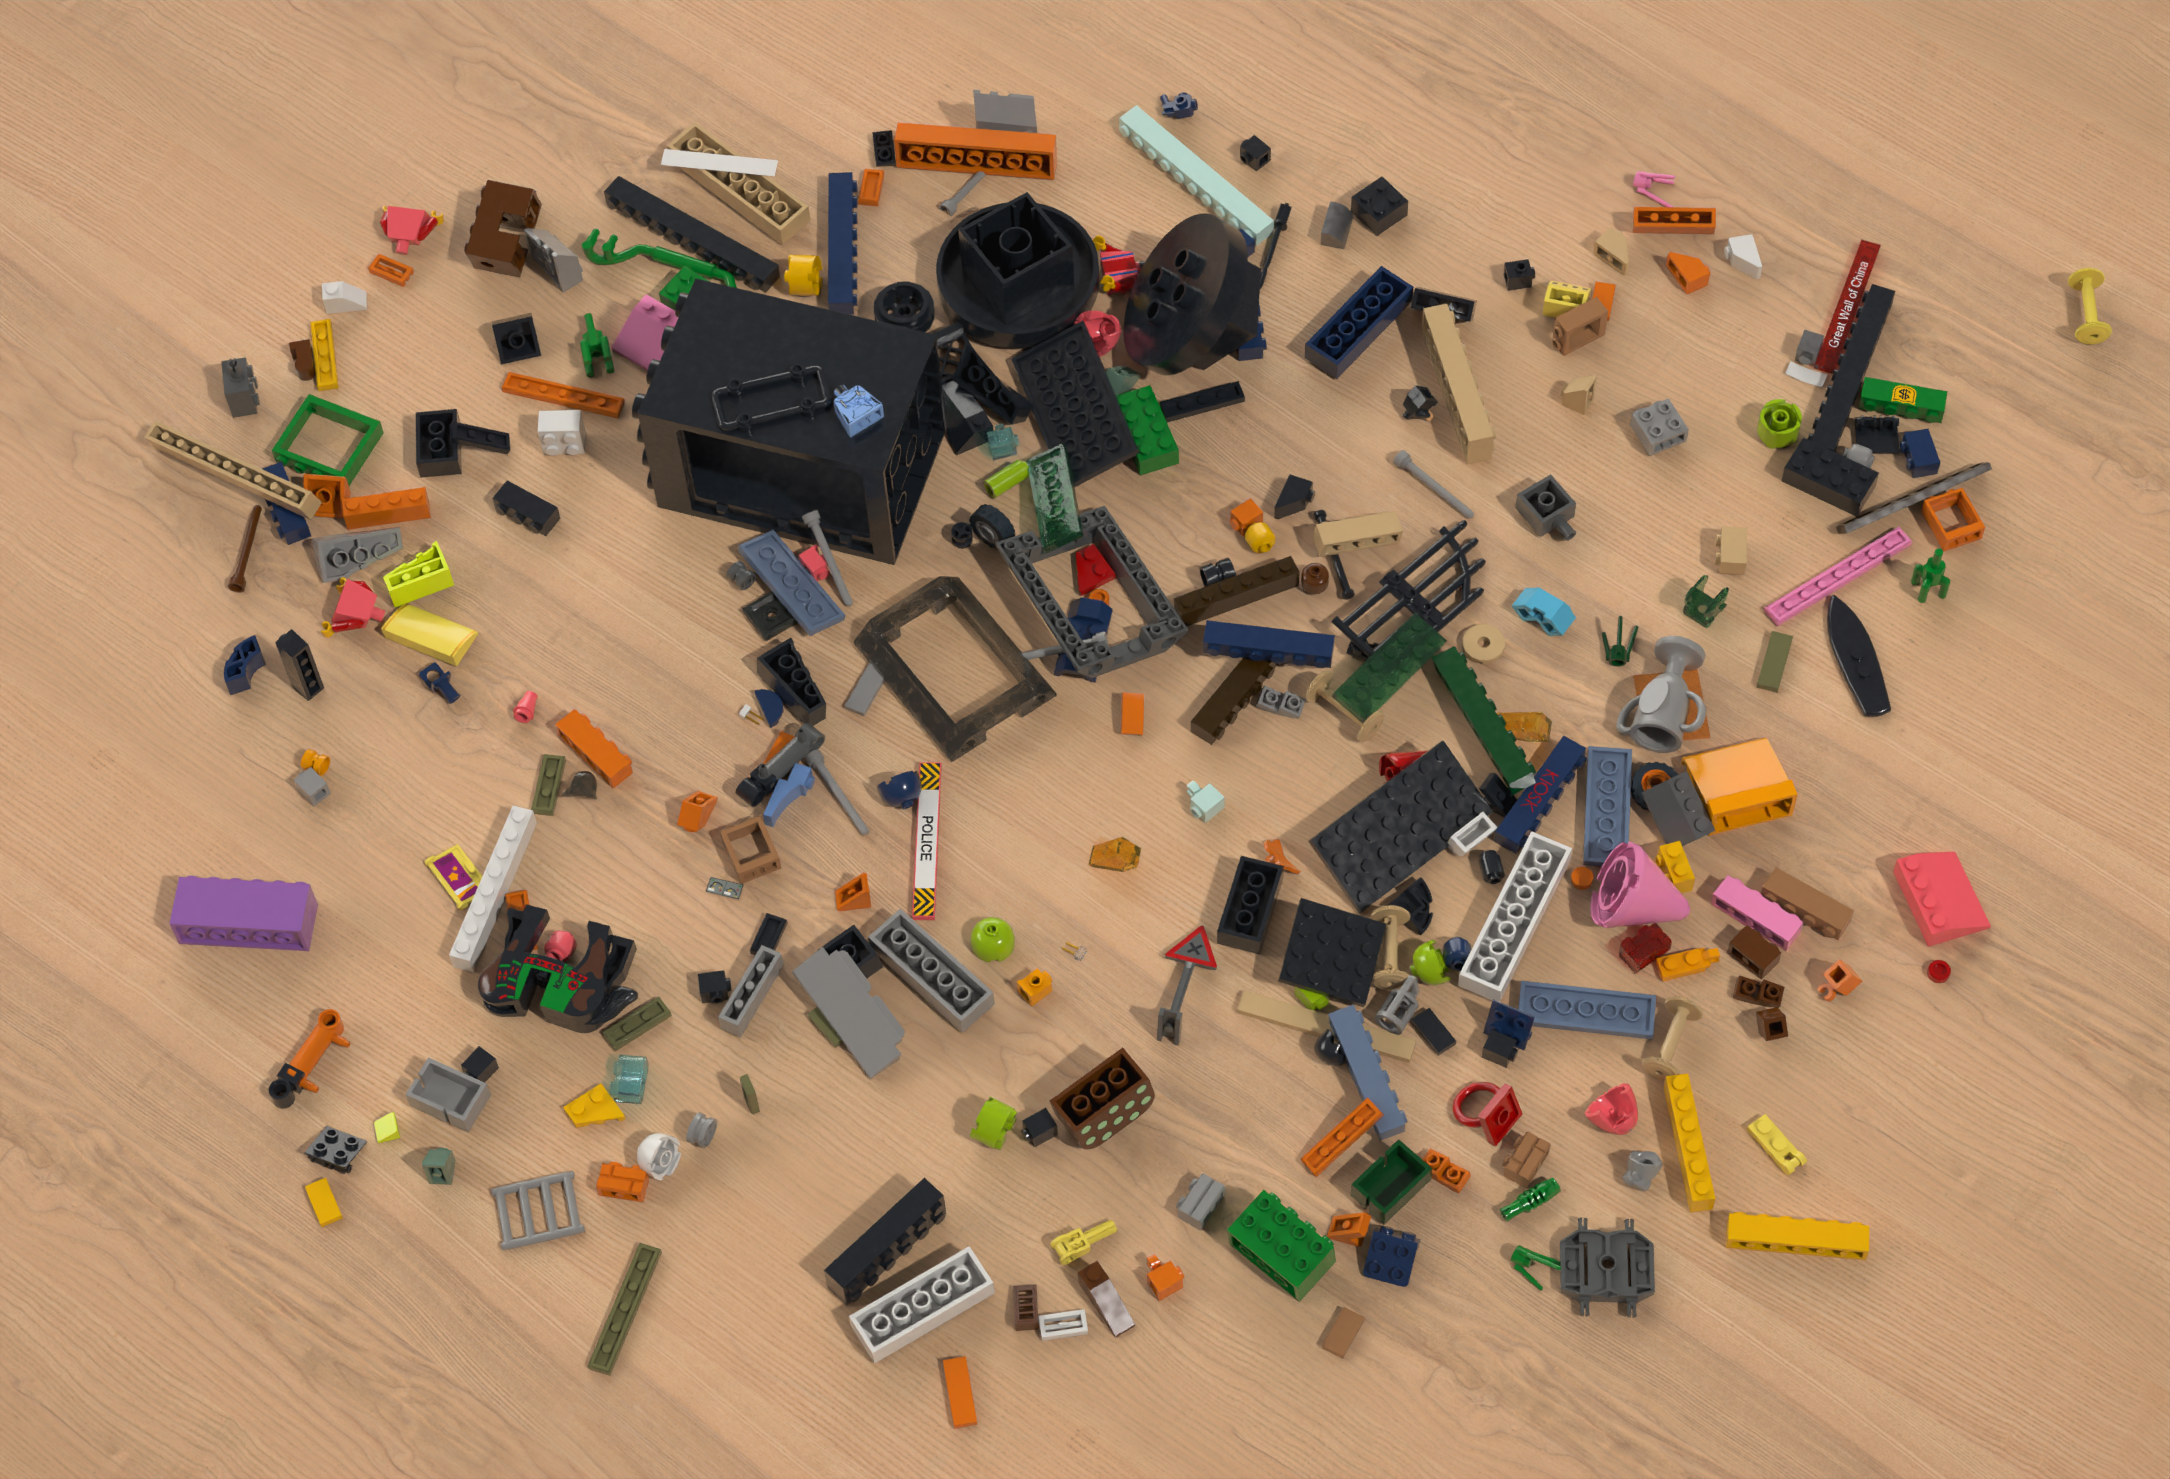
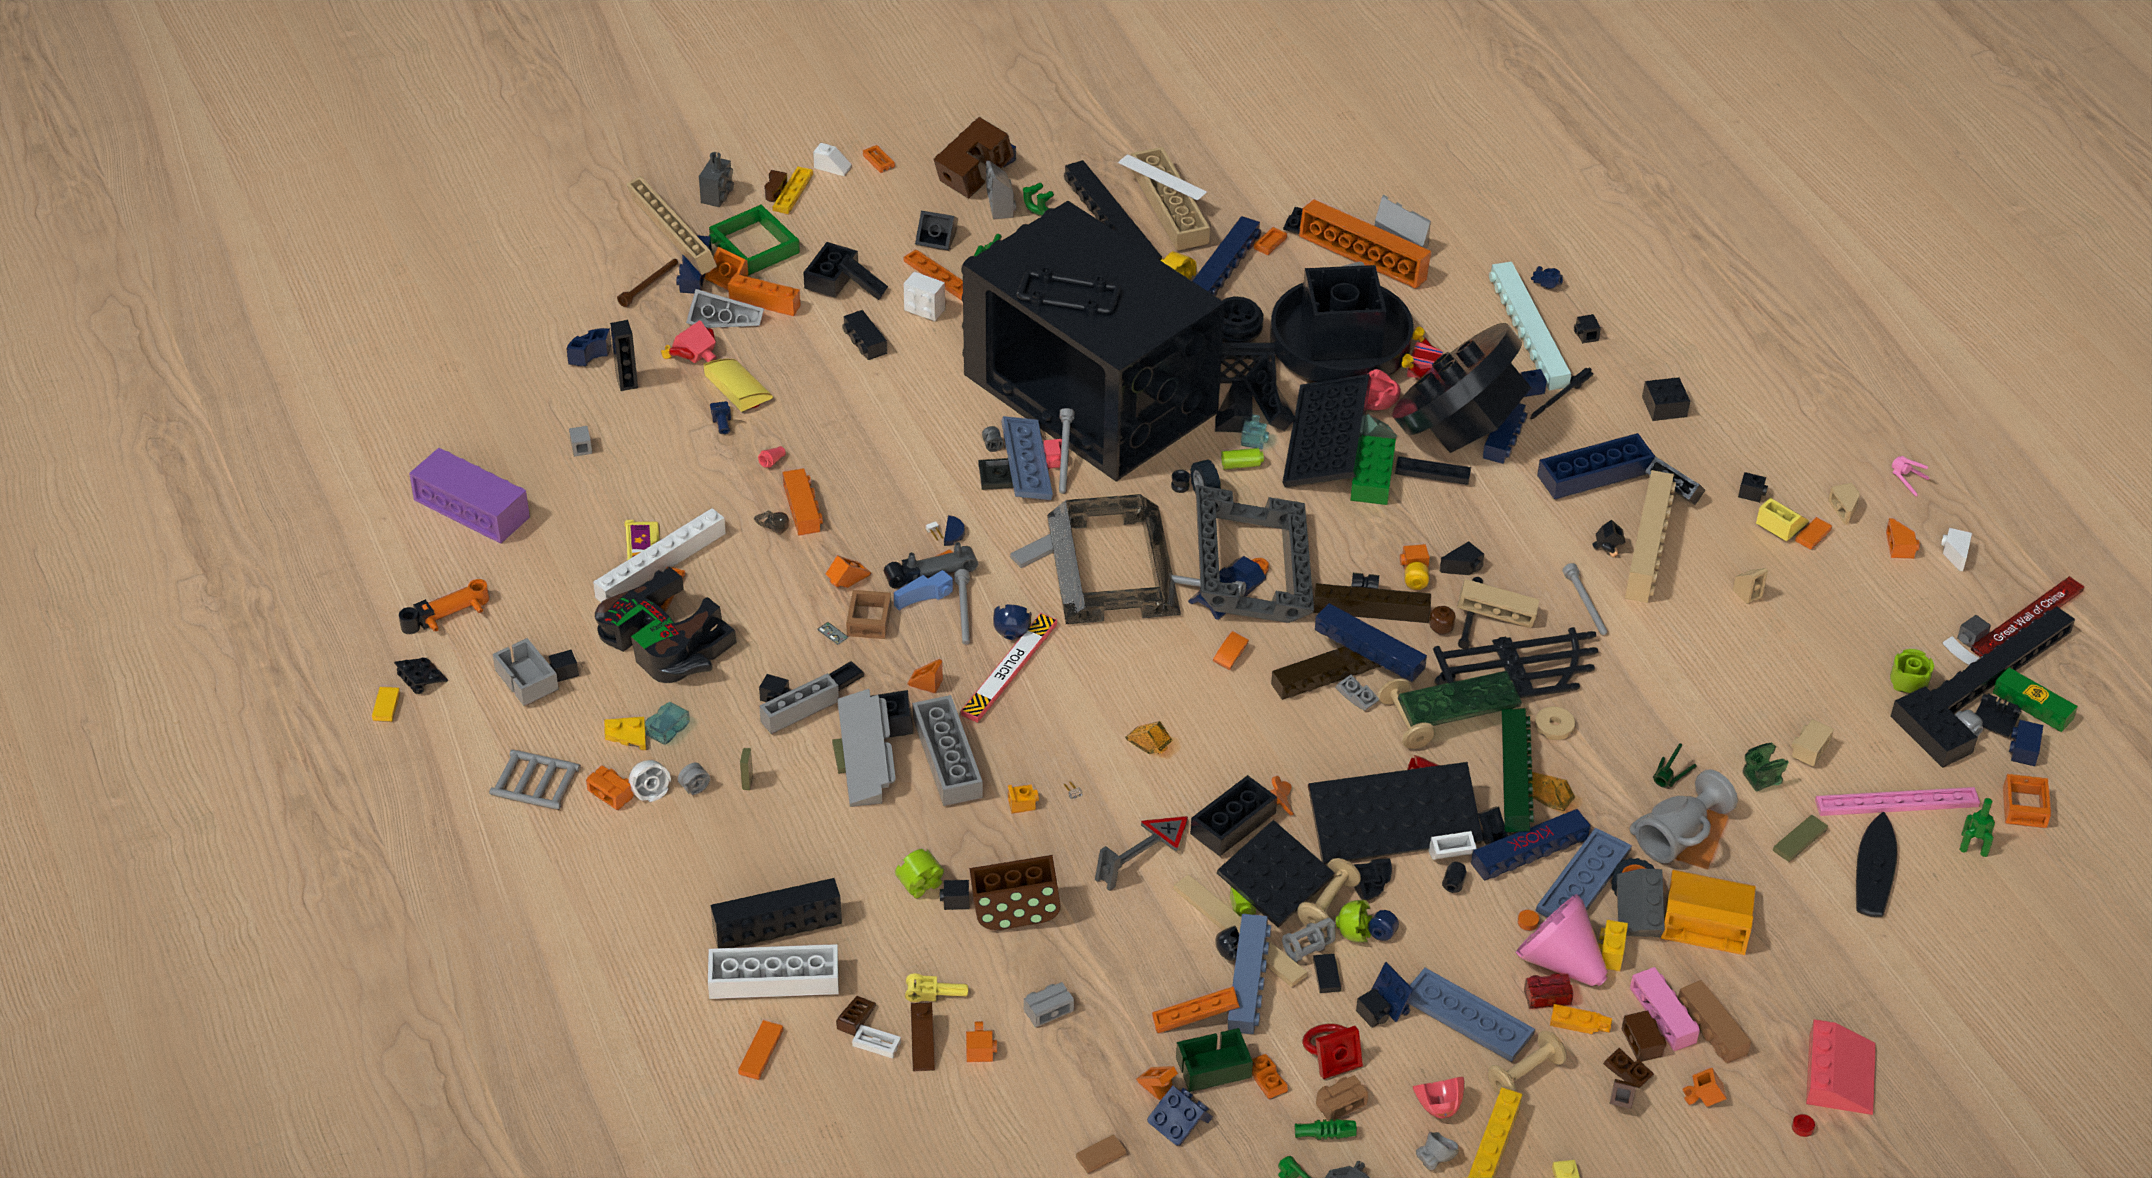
camera: 25 degrees right, 15 degrees down
(317, 762) = (595, 427): light orange wheel -> none
(387, 1128) = (468, 677): neon yellow slope -> none
(408, 226) = (909, 135): coral torso -> none
(419, 578) = (754, 345): neon yellow wedge -> none
(439, 1166) = (483, 715): sand green slope -> none
(548, 785) = (745, 517): olive tile -> none
(560, 946) = (680, 611): coral head -> none
(624, 1309) = (548, 873): olive tile -> none
(637, 1023) = (700, 691): olive tile -> none
(791, 680) = (978, 516): black wedge -> none
(856, 409) = (1127, 321): light blue torso -> none
(992, 939) = (1012, 752): lime cylinder -> none
(1054, 498) = (1266, 480): clear green plate -> none
(1092, 570) = (1267, 545): red wing -> none
(1205, 802) = (1248, 732): light aqua brick -> none
(1282, 1244) = (1090, 1061): green brick -> none
(1336, 226) = (1621, 399): flat silver brick -> none
(1515, 917) = (1449, 918): white brick -> none
(1546, 609) = (1622, 718): medium azure brick -> none
(1547, 507) = (1670, 649): dark grey brick -> none
(1579, 326) = (1780, 526): medium nougat window -> none
(1659, 427) = (1804, 633): light grey brick -> none
(1674, 220) = (1910, 499): orange brick -> none
(1913, 497) = (2000, 771): tile -> none

